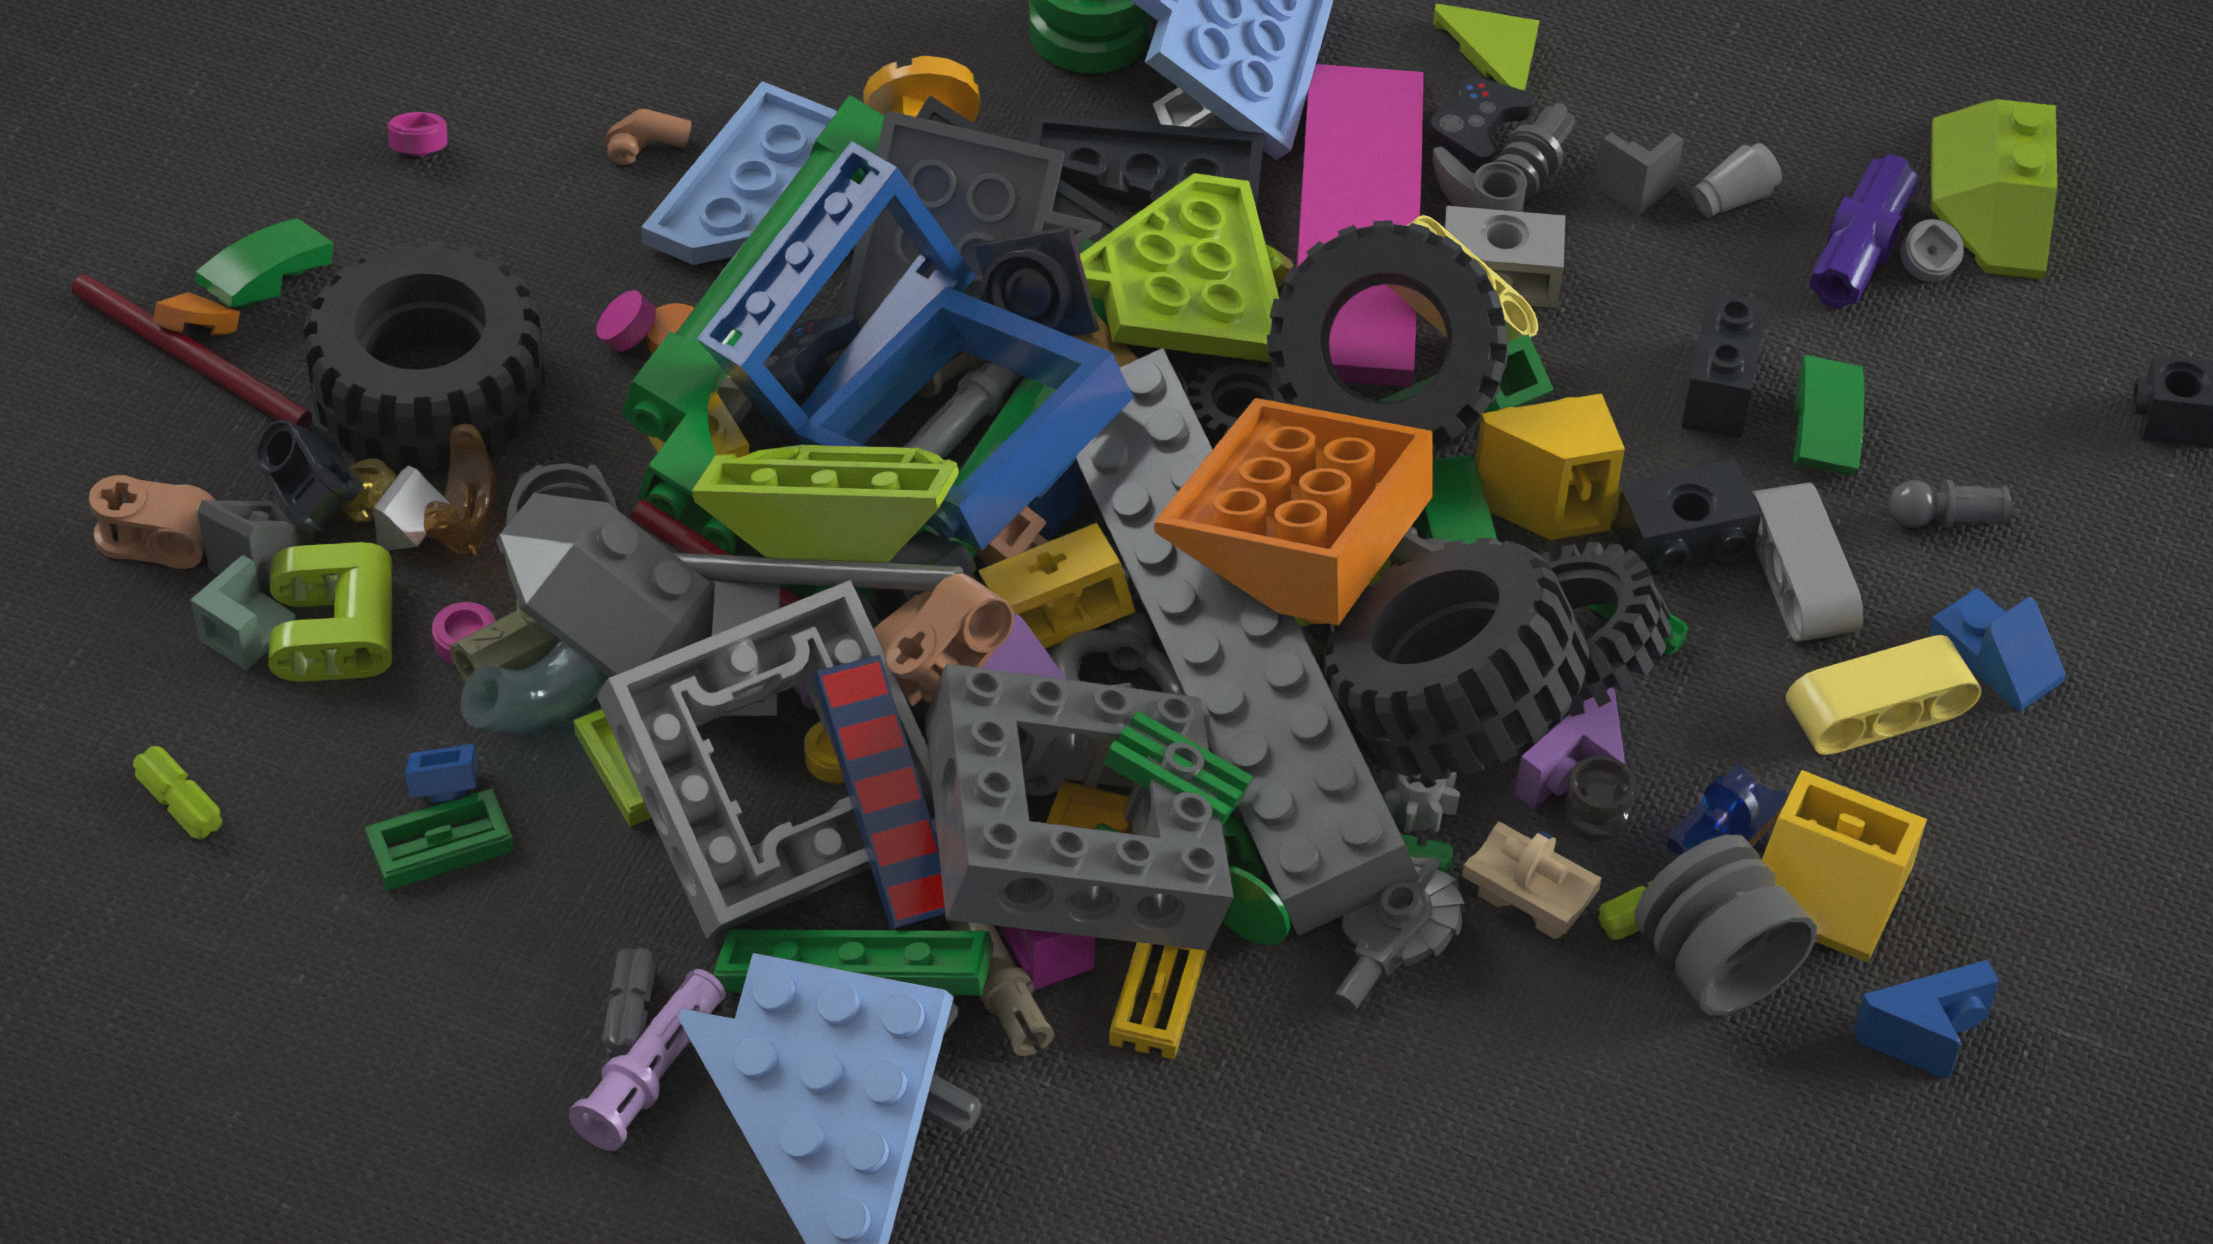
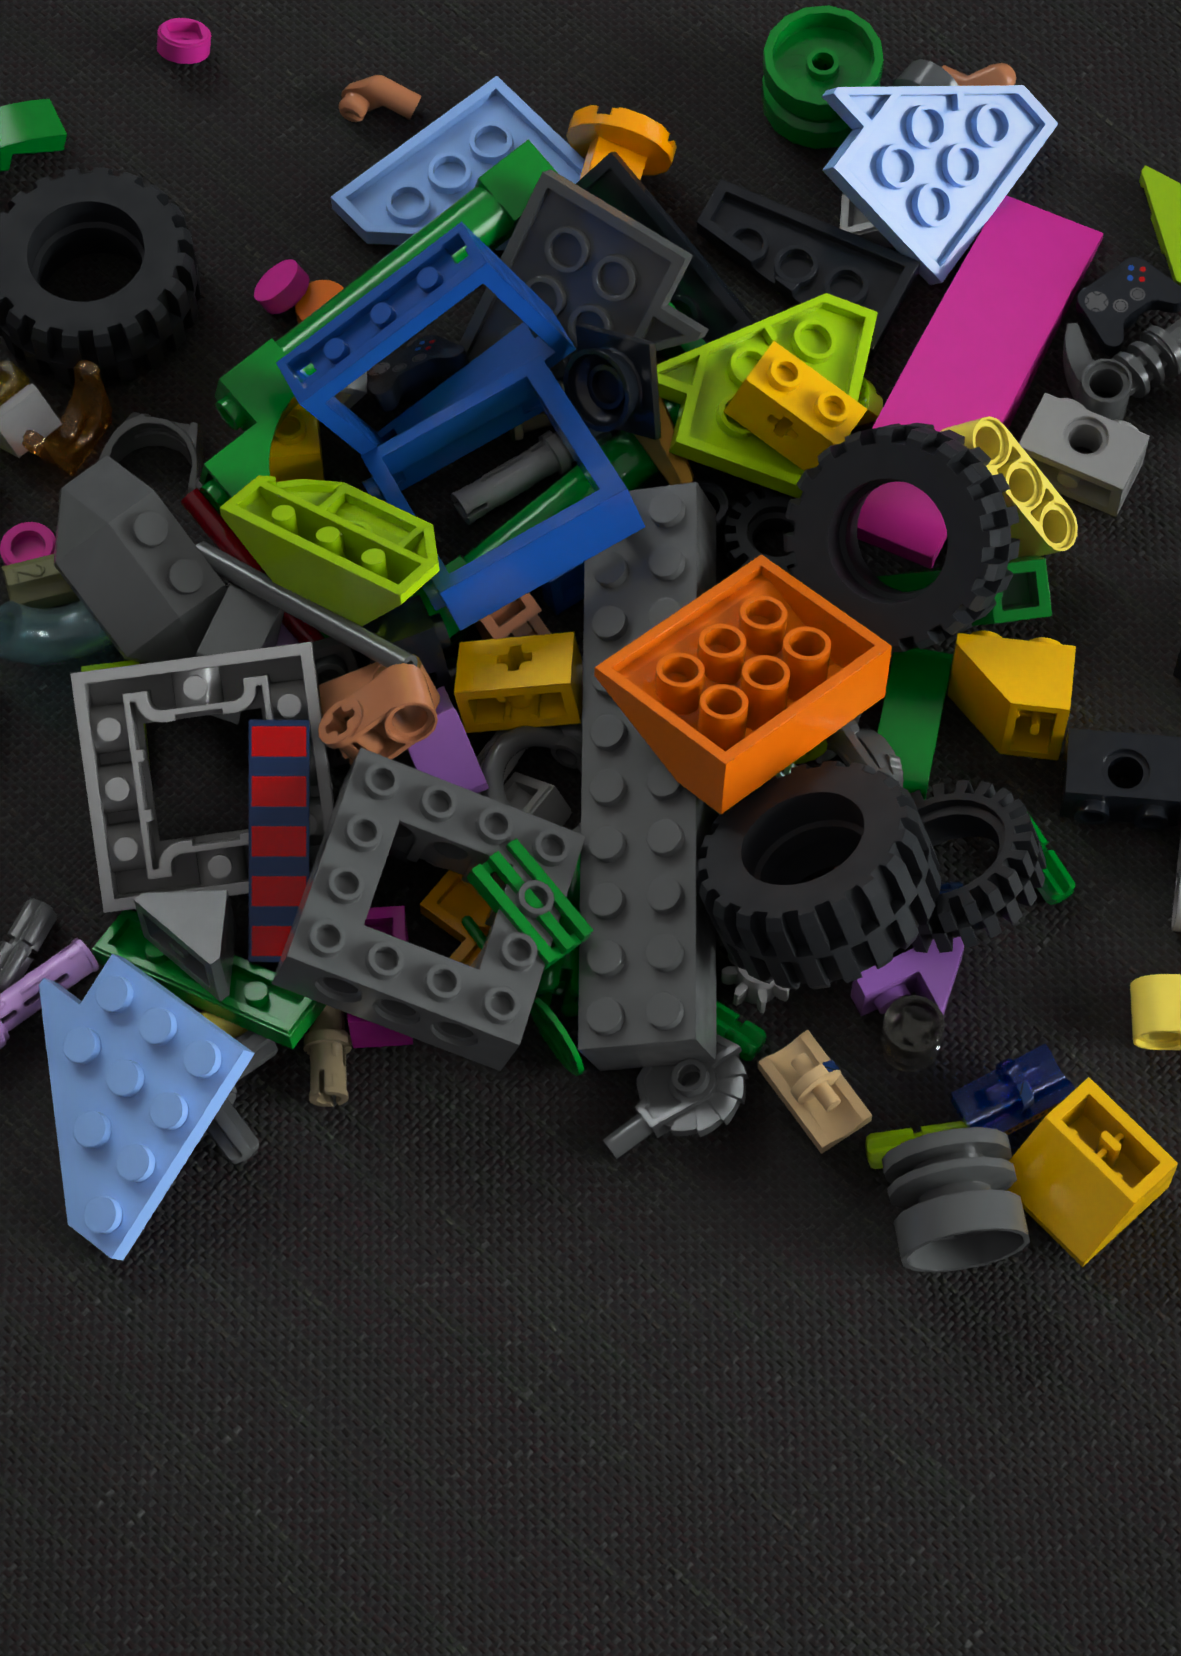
camera: 25 degrees right, 15 degrees up
(824, 916) = (194, 933): none -> dark grey slope
(1147, 1034) = (429, 1123): yellow tile -> none
(1224, 266) = (793, 407): none -> yellow brick
(1922, 1016) = (1090, 1336): blue slope -> none

